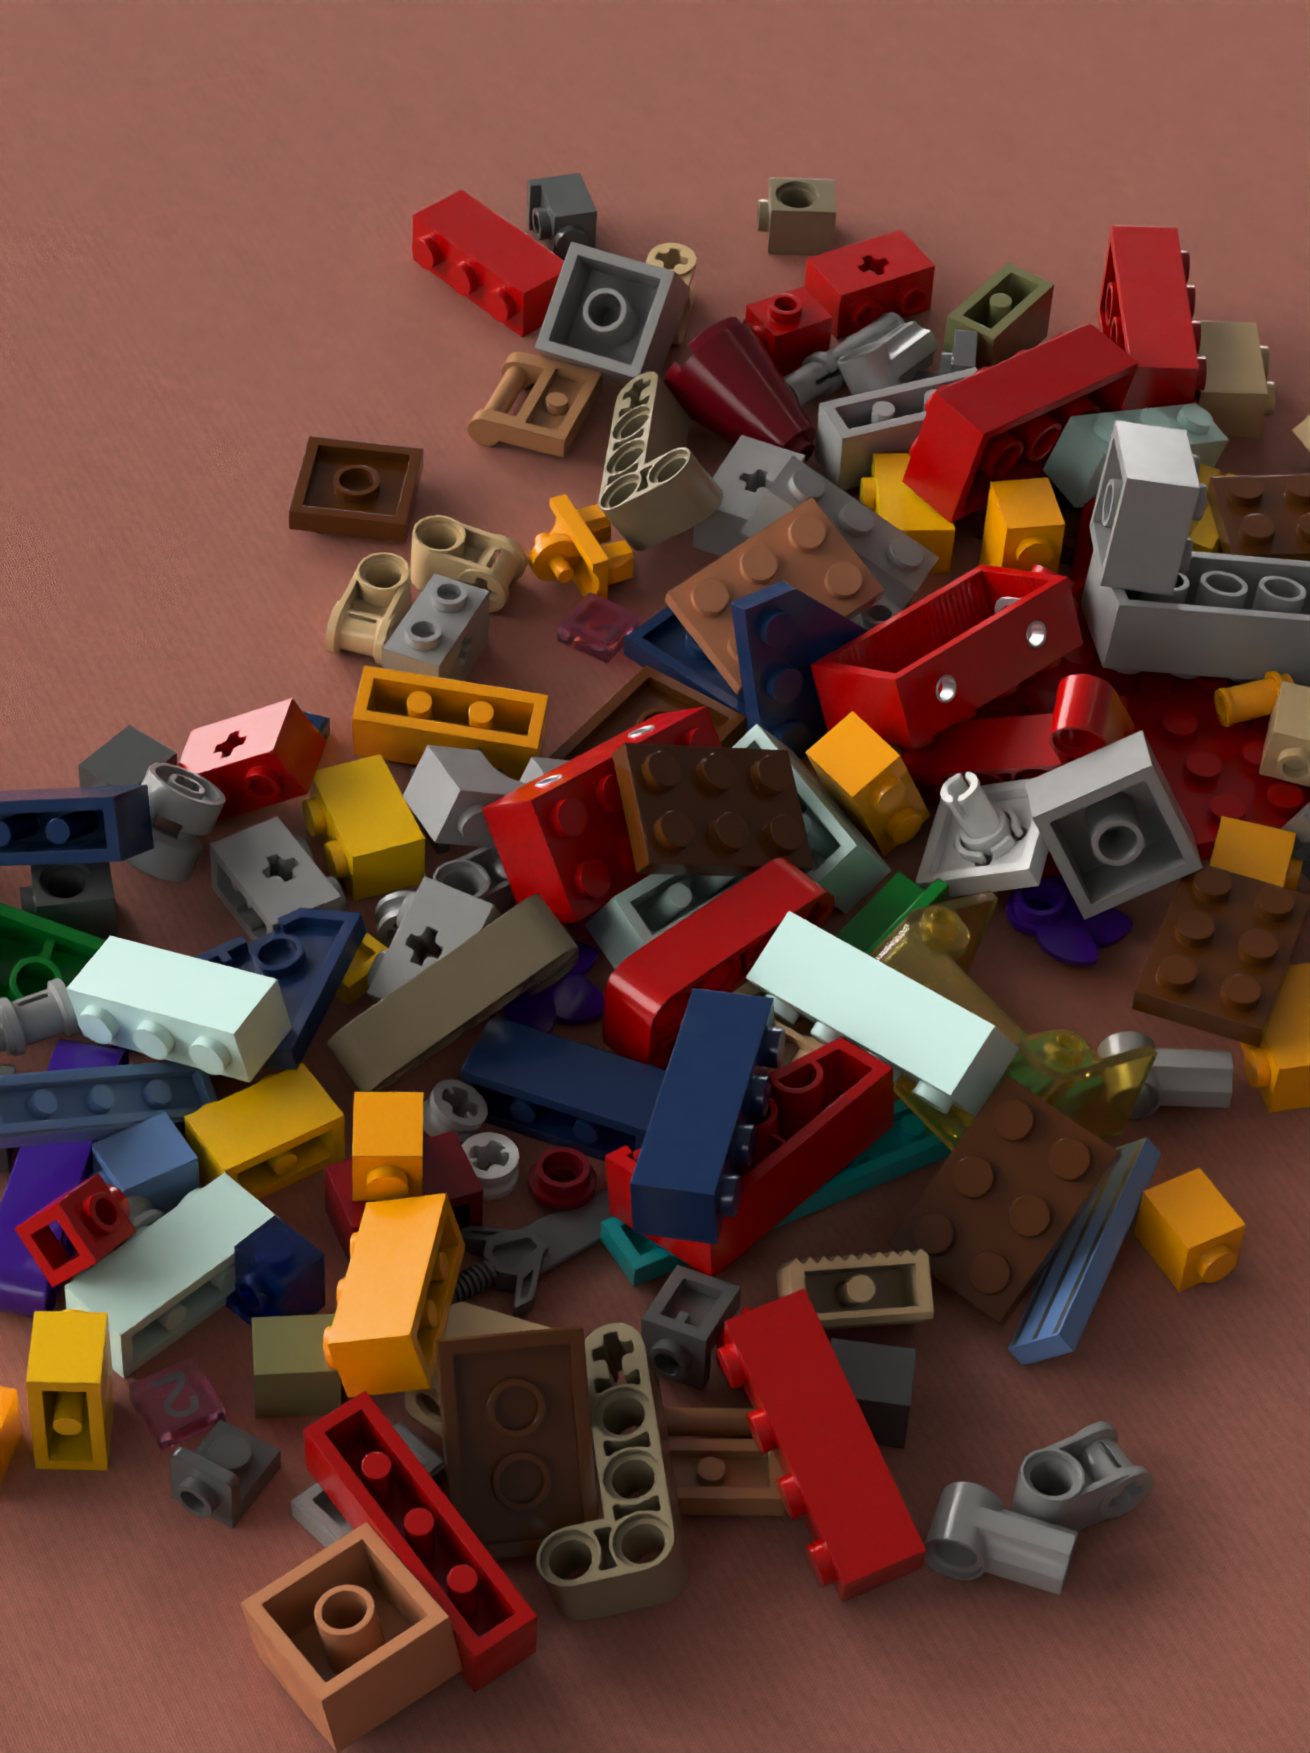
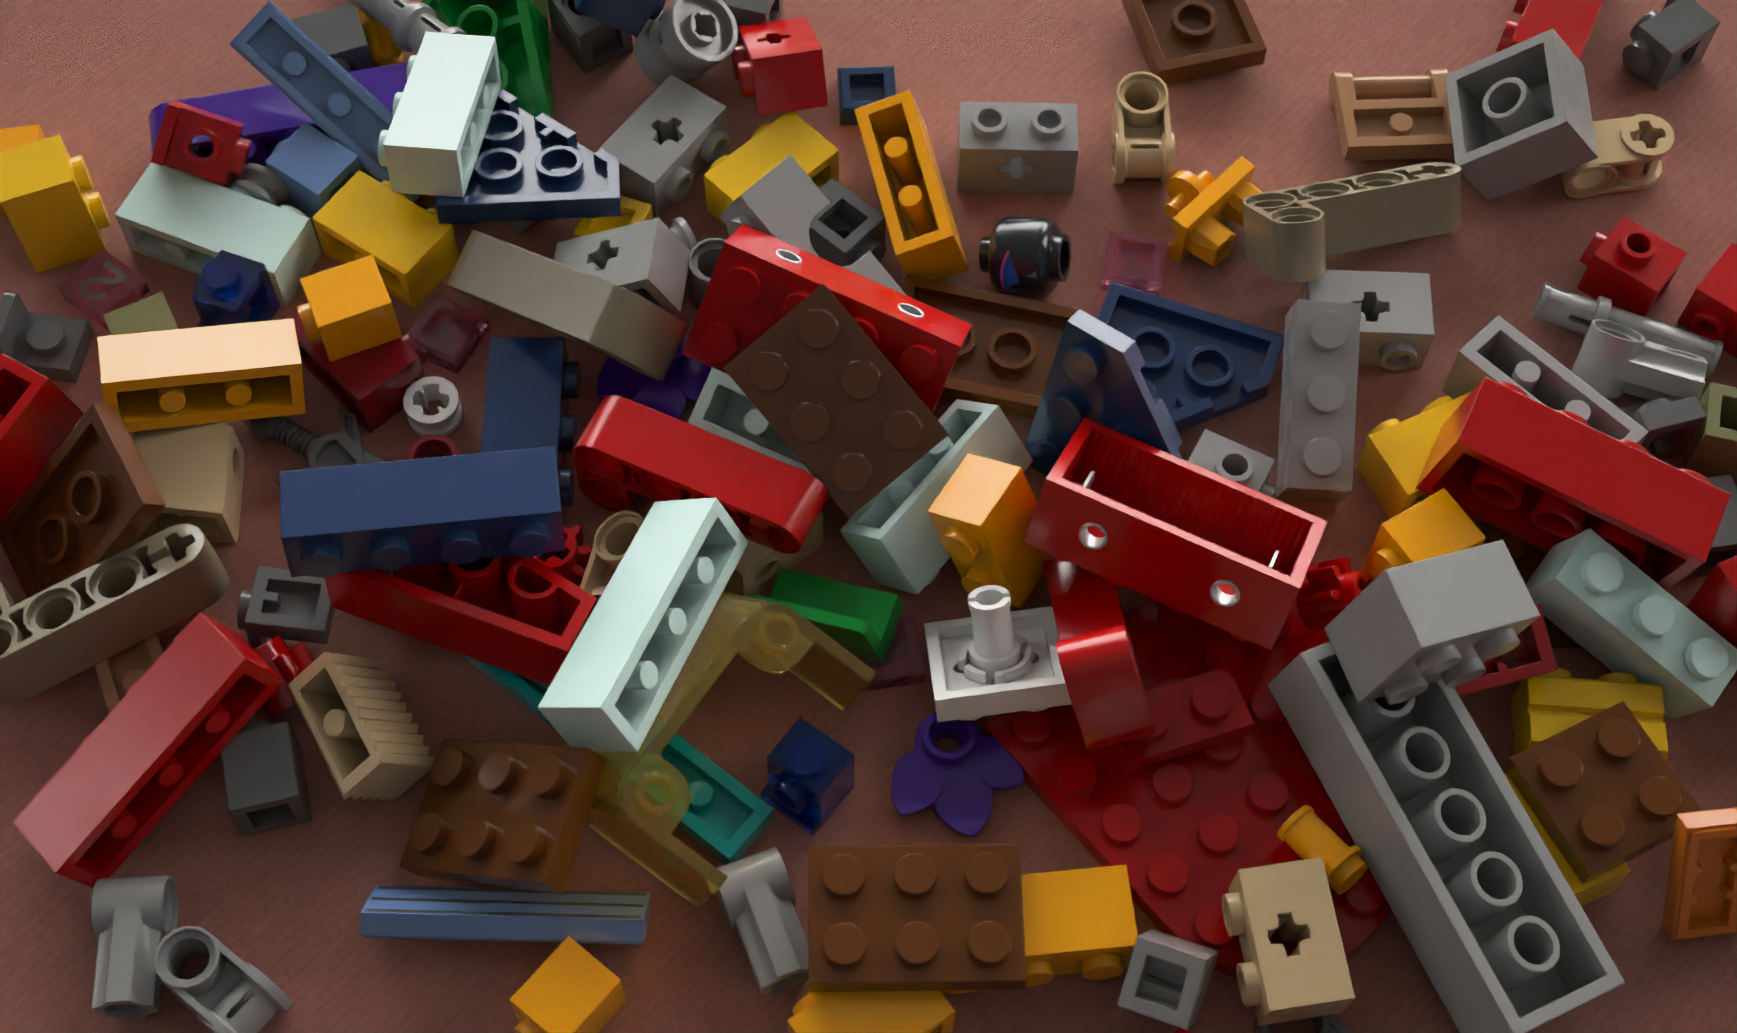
camera: 70 degrees right, 15 degrees up
(371, 606) = (1043, 78): tan piece -> none
(456, 1097) = (445, 347): light grey bush -> none
(569, 675) = (1026, 256): none -> black head
(739, 390) = (1497, 253): dark red cone -> none
(796, 549) = (1207, 362): nougat plate -> none
(1040, 991) = (808, 776): none -> clear blue brick
(1113, 825) = (1005, 751): light grey brick -> none

